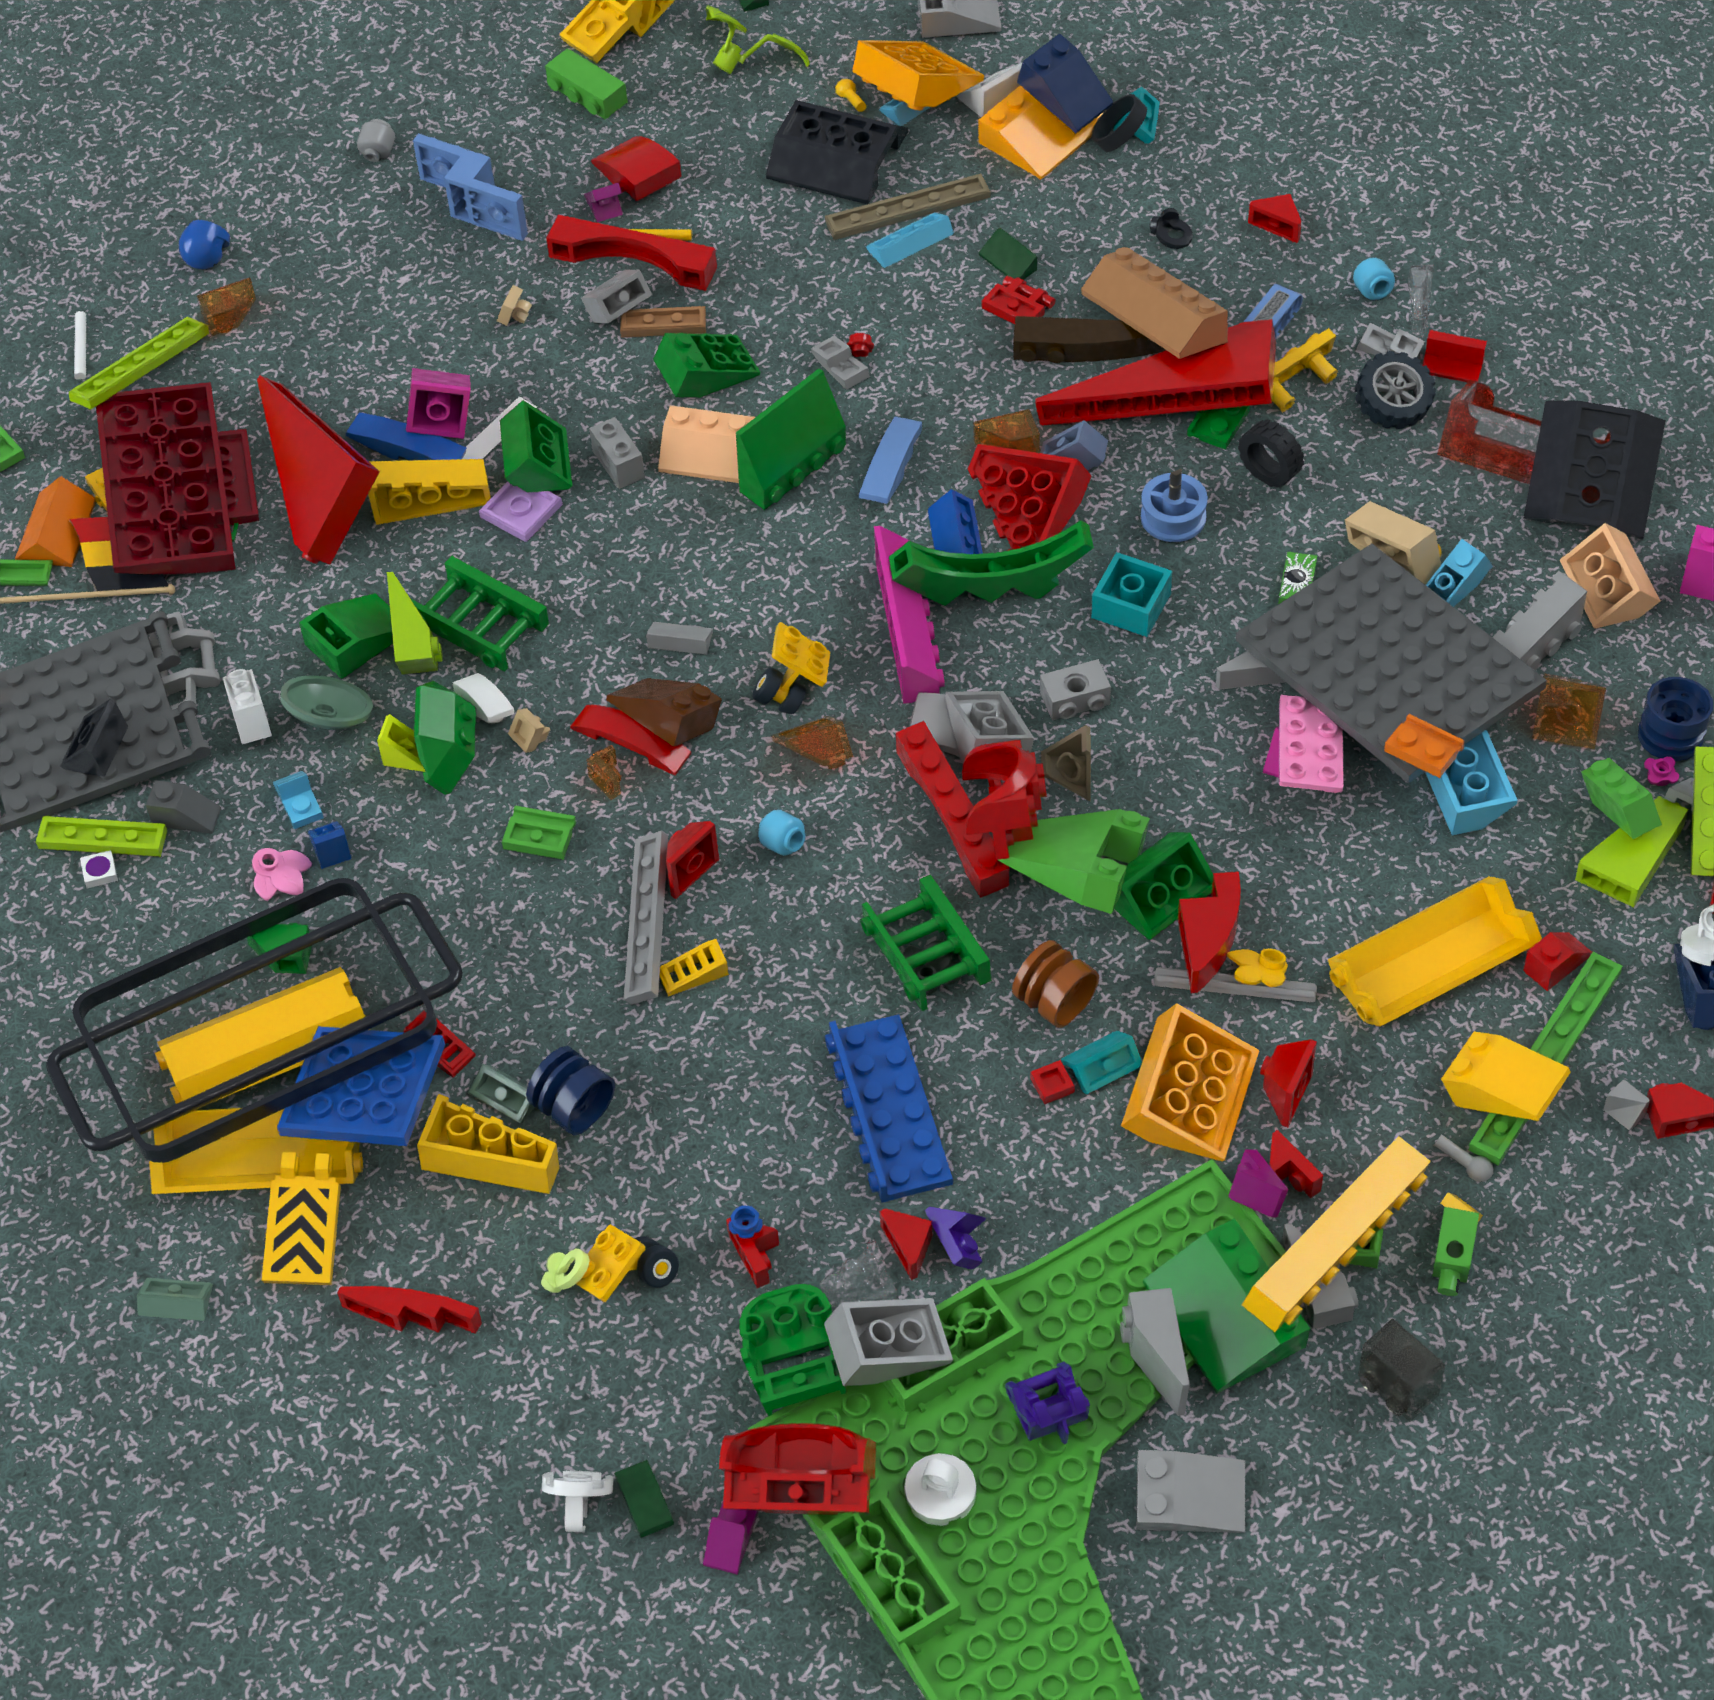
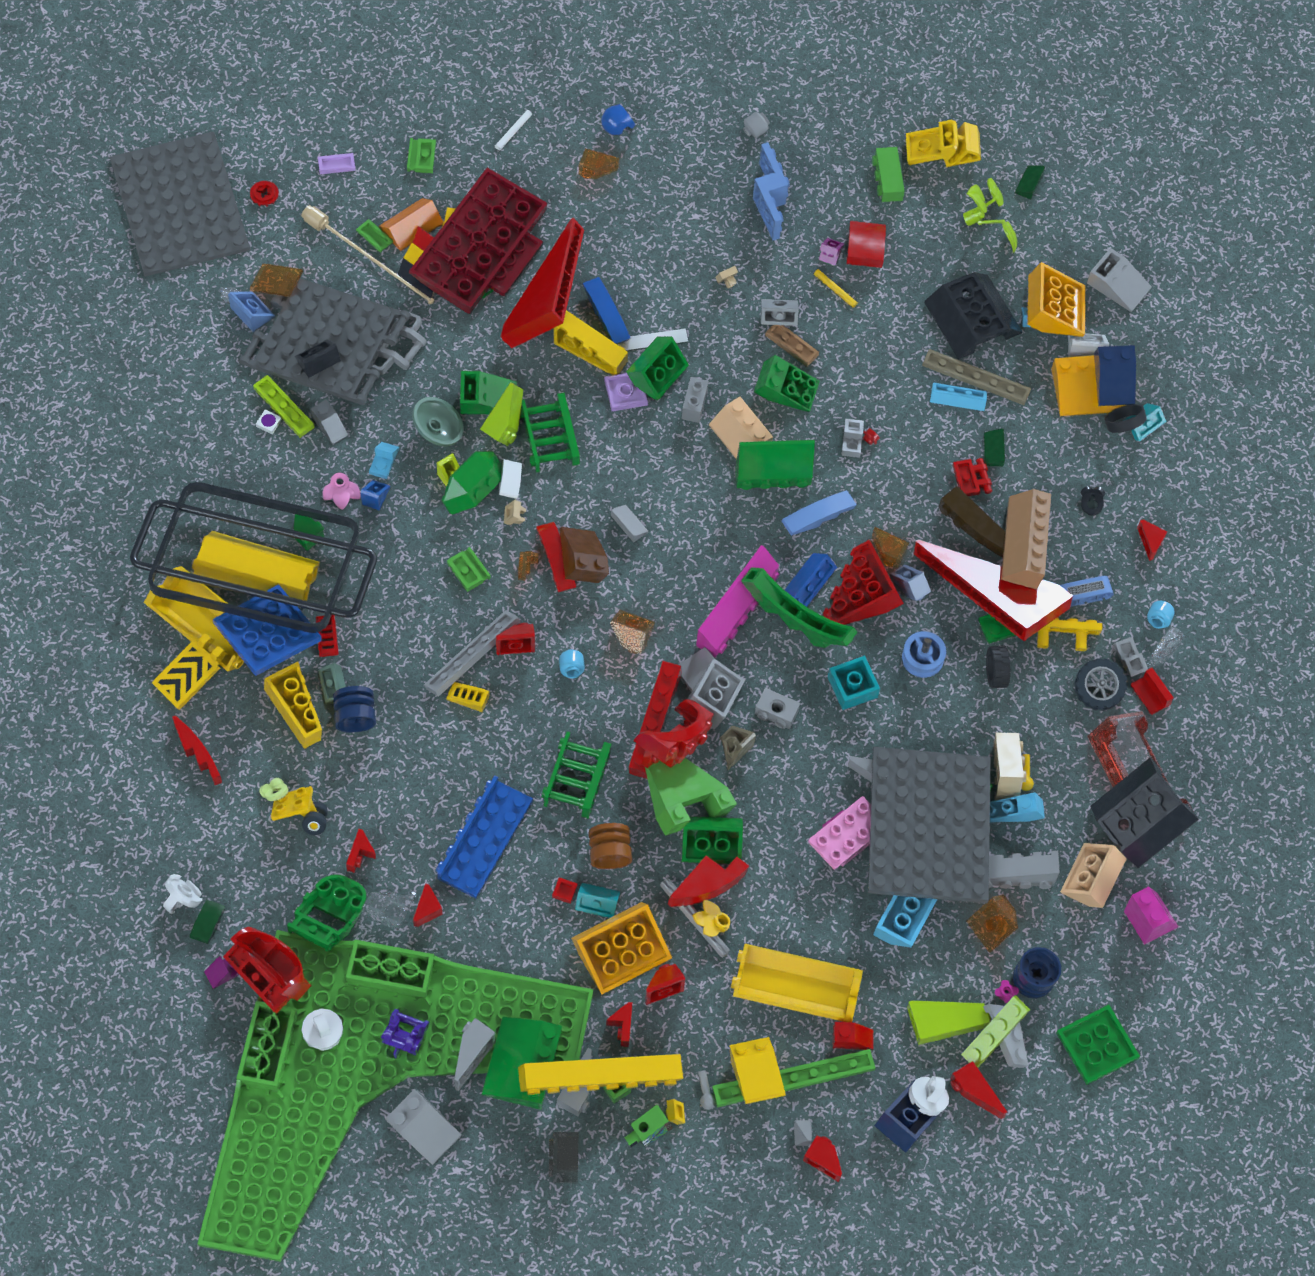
camera: 35 degrees right, 10 degrees up
(138, 363) = (525, 164): lime tile -> none
(174, 1299) = (111, 658): sand green slope -> none
(246, 706) = (404, 392): white slope -> none
(438, 403) = (636, 302): dark pink slope -> none
(580, 240) = (795, 264): red arch -> none
(745, 1214) = (362, 832): blue plate -> none
(802, 658) = (667, 584): yellow plate -> none
(847, 89) = (1016, 282): yellow bar -> none
(886, 1339) = (362, 945): light grey slope -> none
(953, 1232) = (448, 922): dark purple slope -> none
(1258, 1185) = (596, 1018): magenta slope -> none
(1297, 574) = (946, 741): tile -> none
(1424, 745) = (888, 882): orange plate -> none
(1621, 798) = (961, 988): bright green brick -> none

